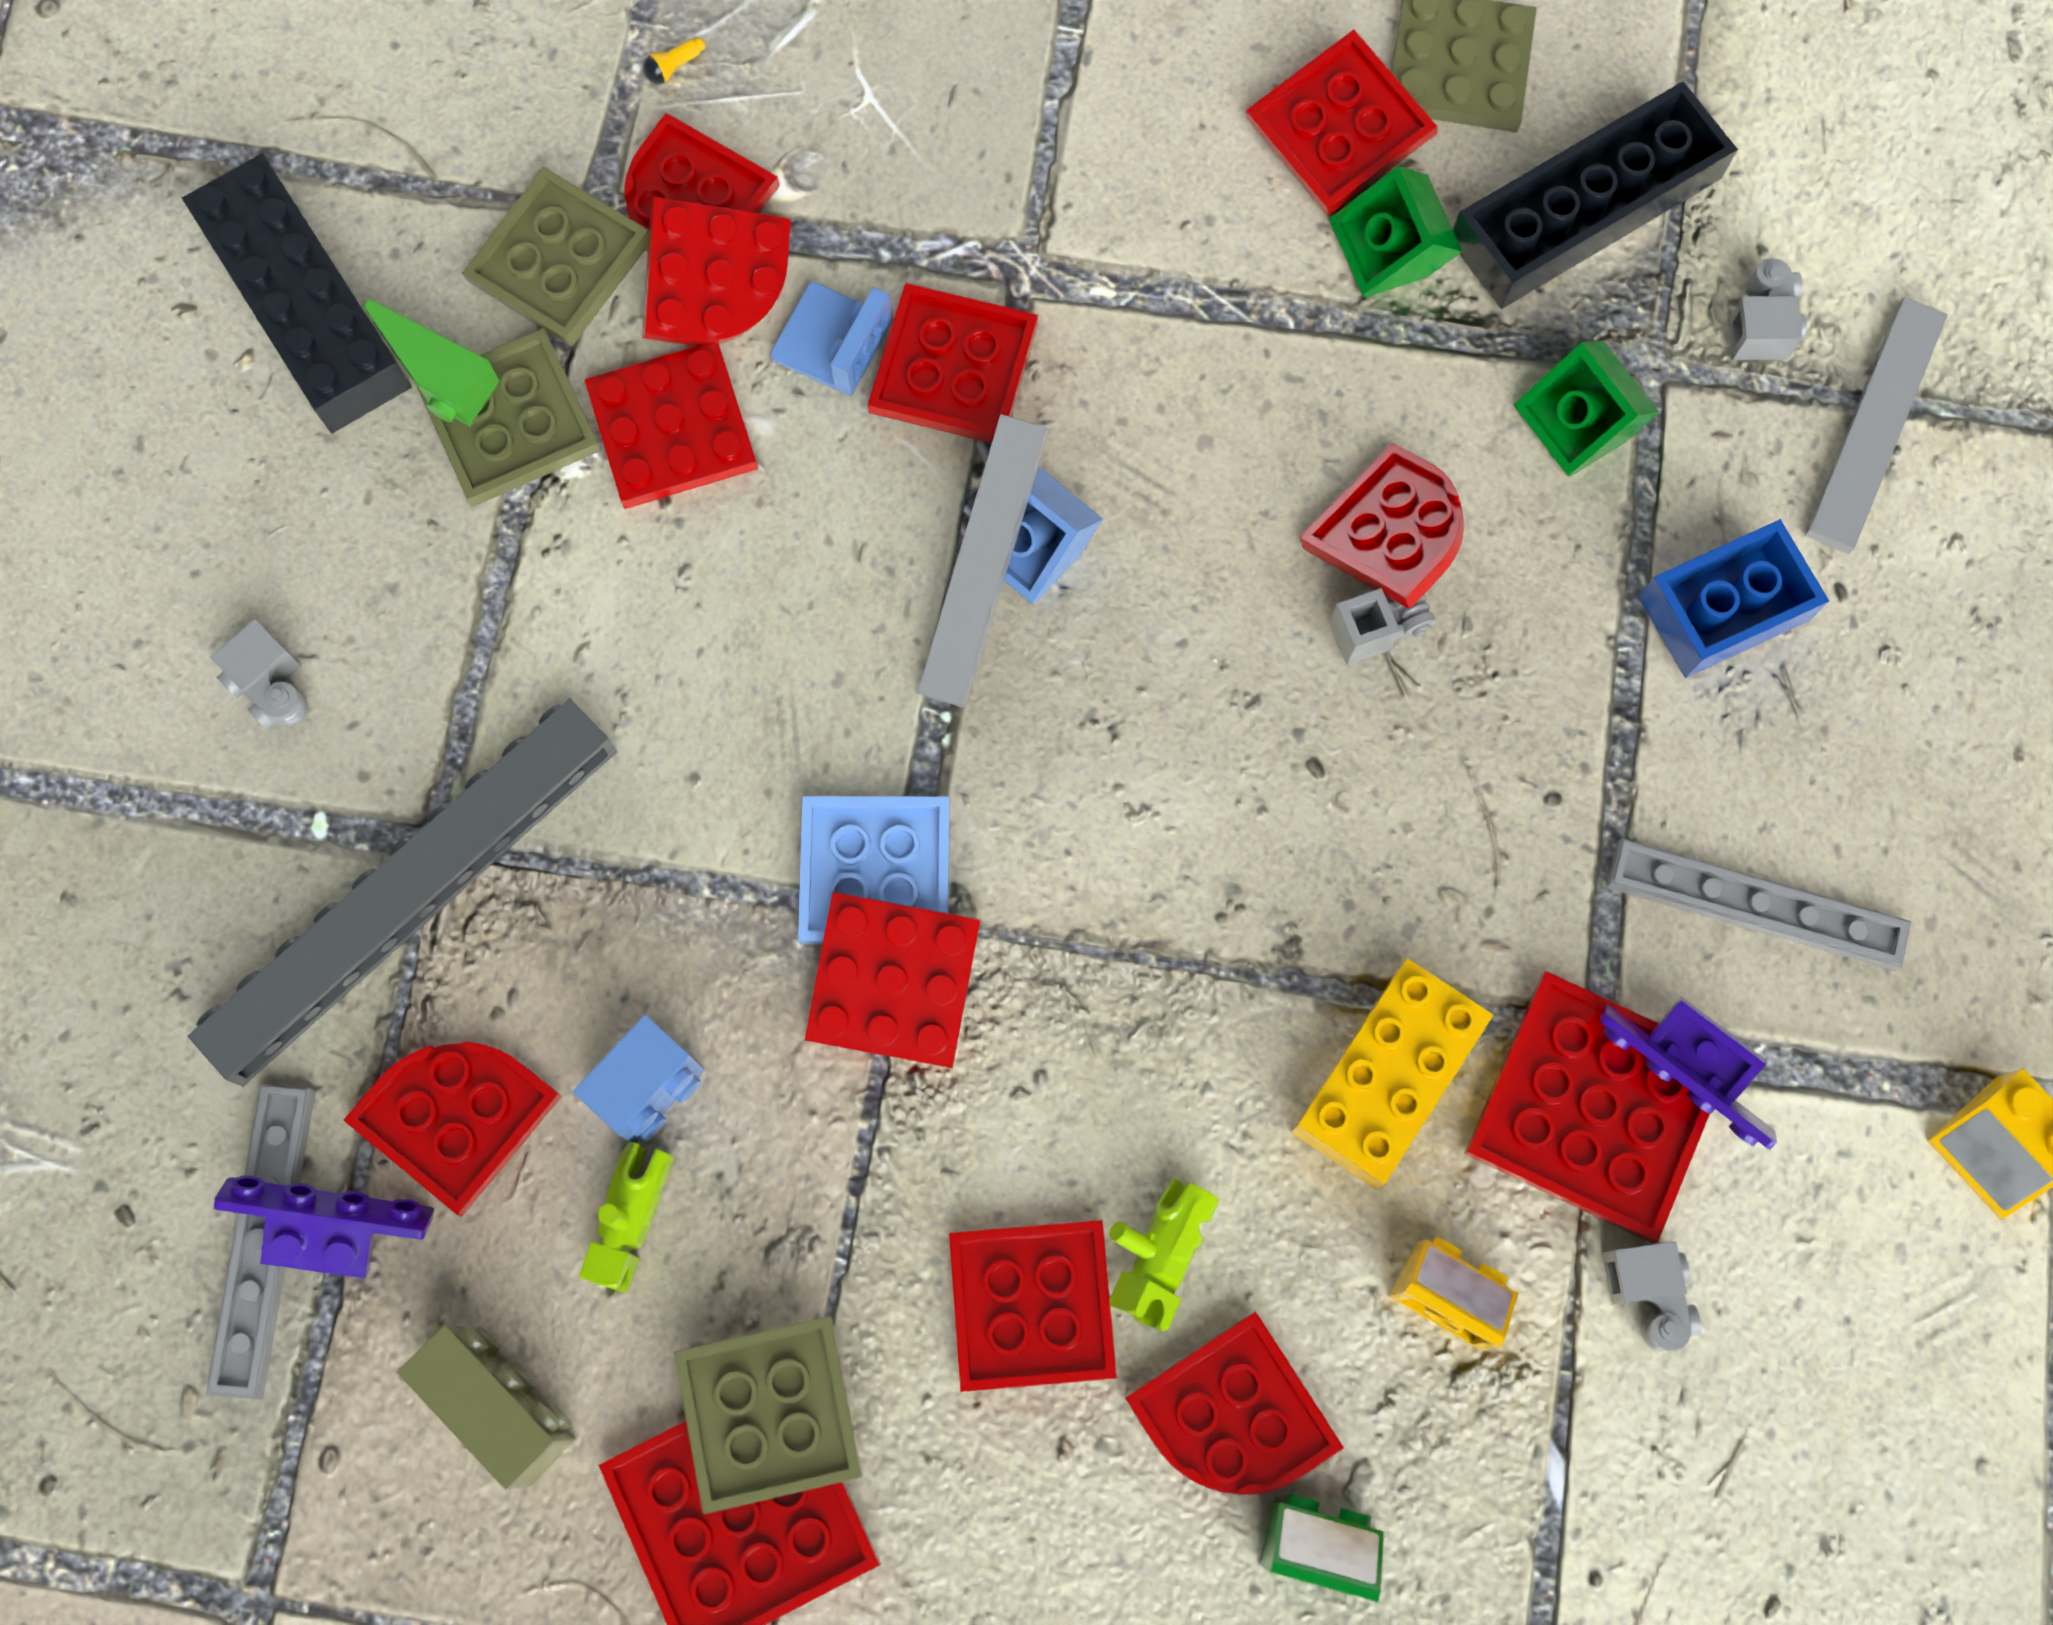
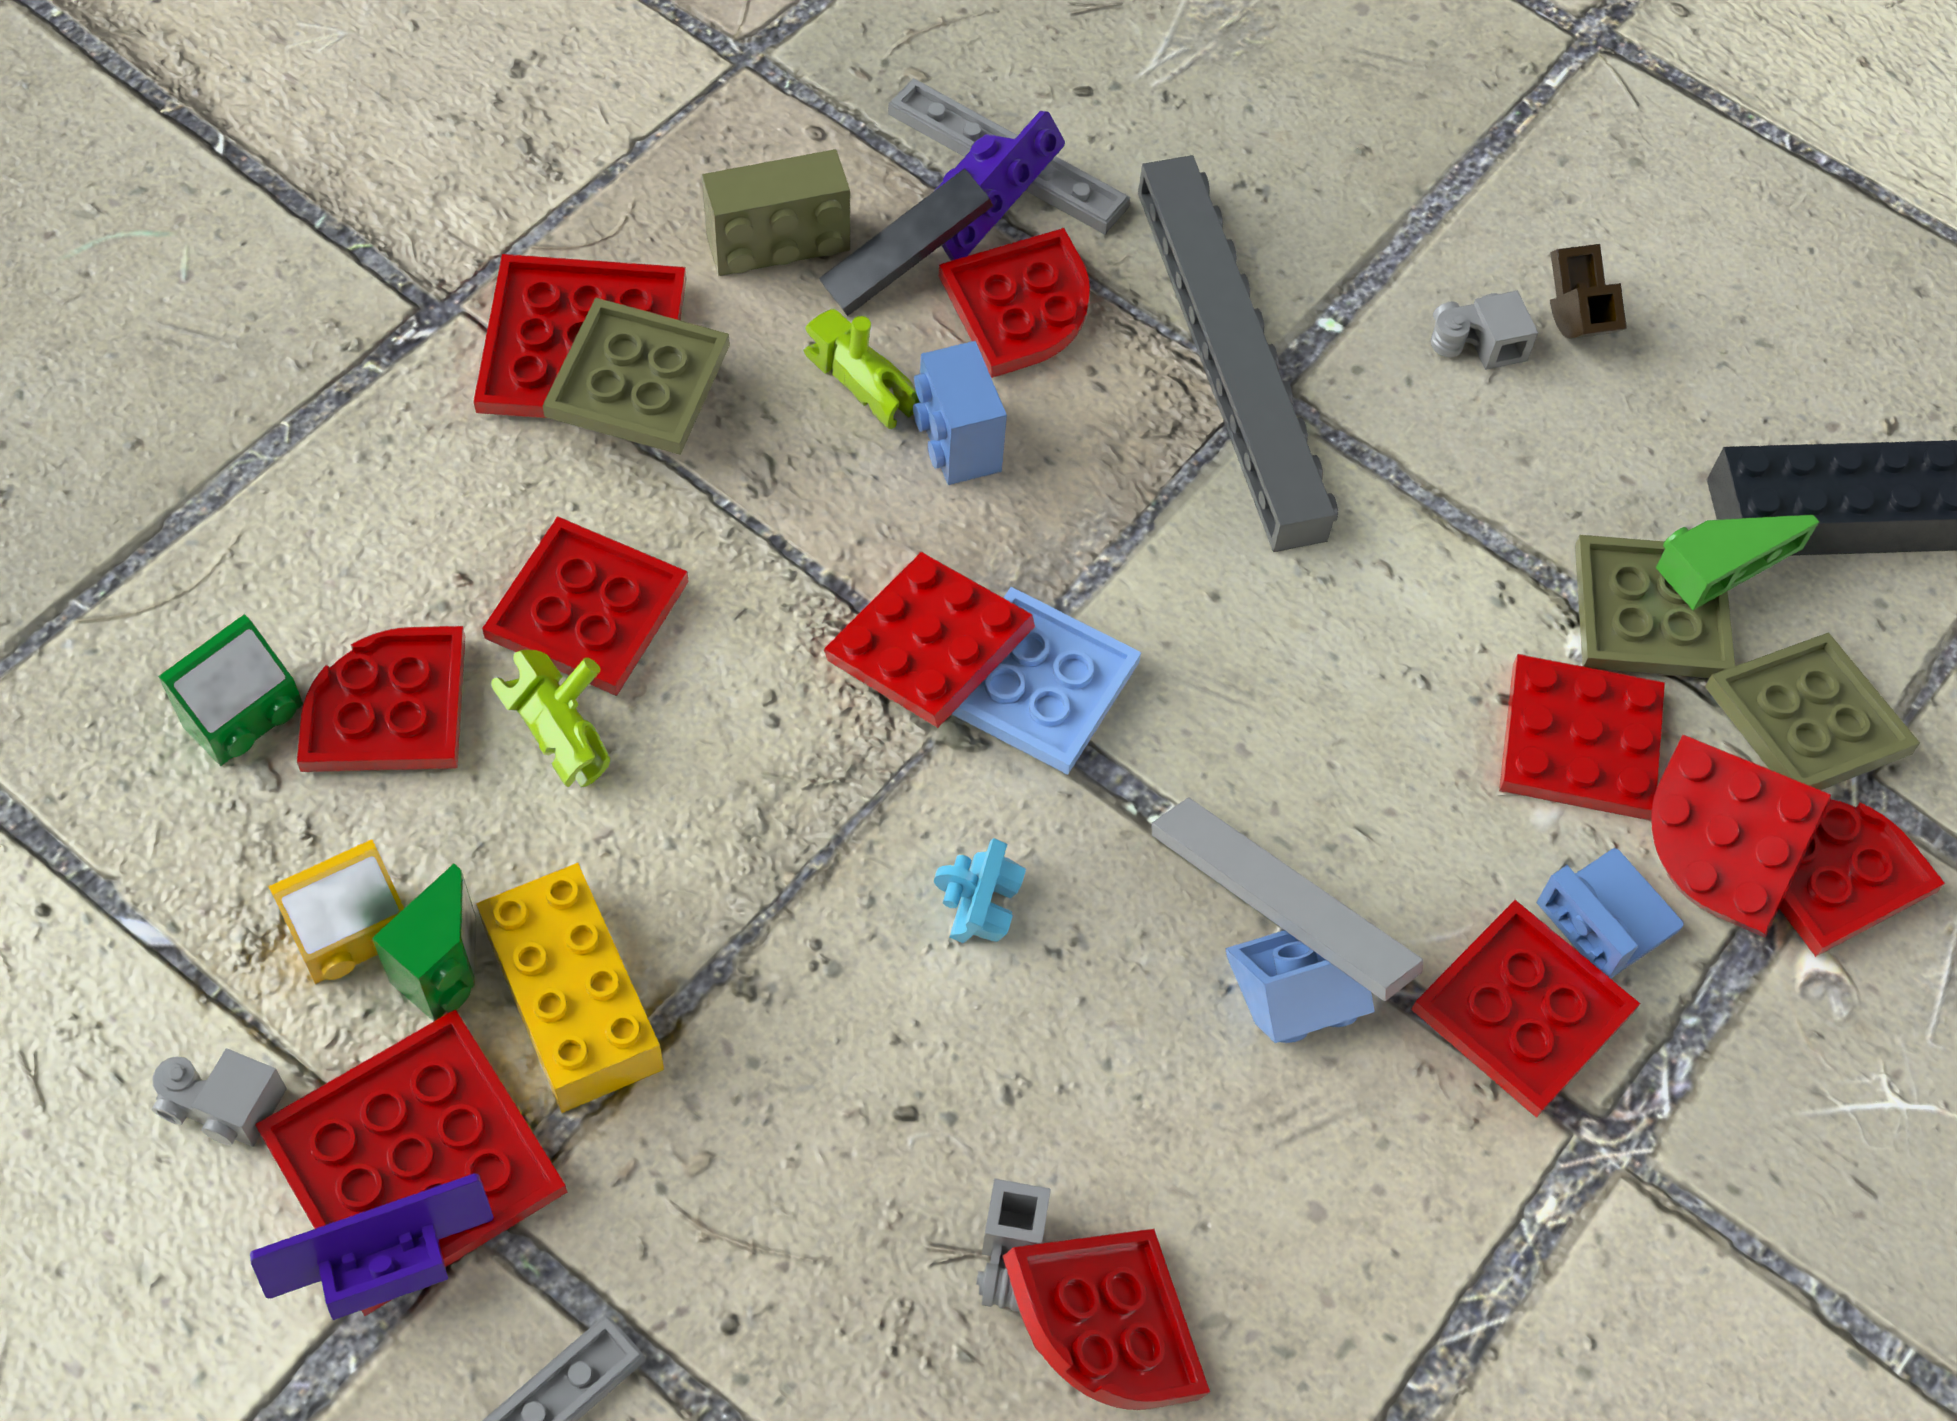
camera: 115 degrees right, 15 degrees down
(187, 604) = (1583, 300): none -> dark brown brick
(452, 1256) = (906, 242): none -> black tile
(1107, 808) = (975, 887): none -> medium azure hips
(1442, 1195) = (432, 946): none -> green slope

